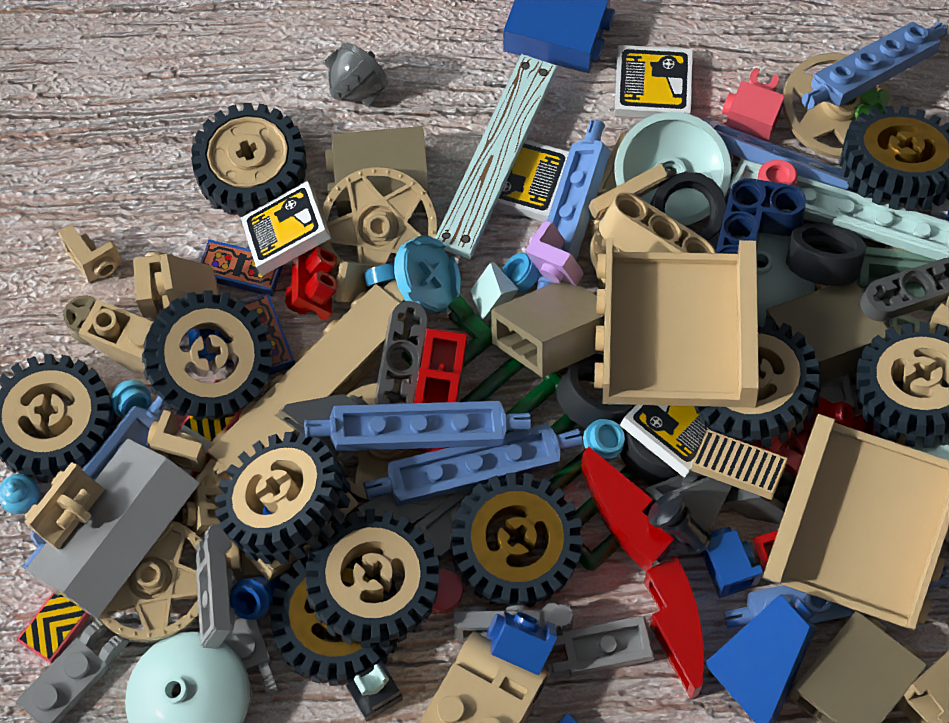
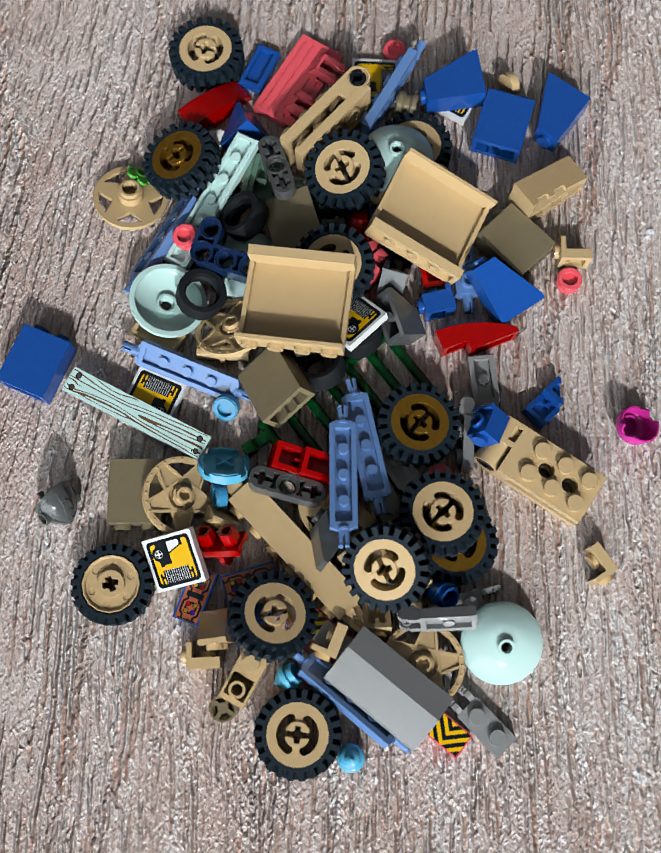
camera: 85 degrees left, 10 degrees up
(64, 505) = (377, 719): tan hips -> none
(90, 261) = (172, 708): tan bracket -> none
(374, 691) = (505, 523): black piece -> none
(492, 290) = (238, 426): light aqua slope -> none
(549, 259) = (231, 380): lavender bracket -> none
(604, 438) = (356, 364): medium azure plate -> none
(625, 511) = (403, 358): red slope -> none
(638, 186) = (184, 327): tan tile -> none
(643, 228) = (221, 315): tan beam -> none
(652, 81) = (93, 308): tile -> none
(675, 519) = (416, 326): black pin -> none
(739, 464) = (387, 282): tan tile -> none
(754, 107) = (125, 246): coral brick -> none
(874, 64) = (110, 167): medium blue plate -> none

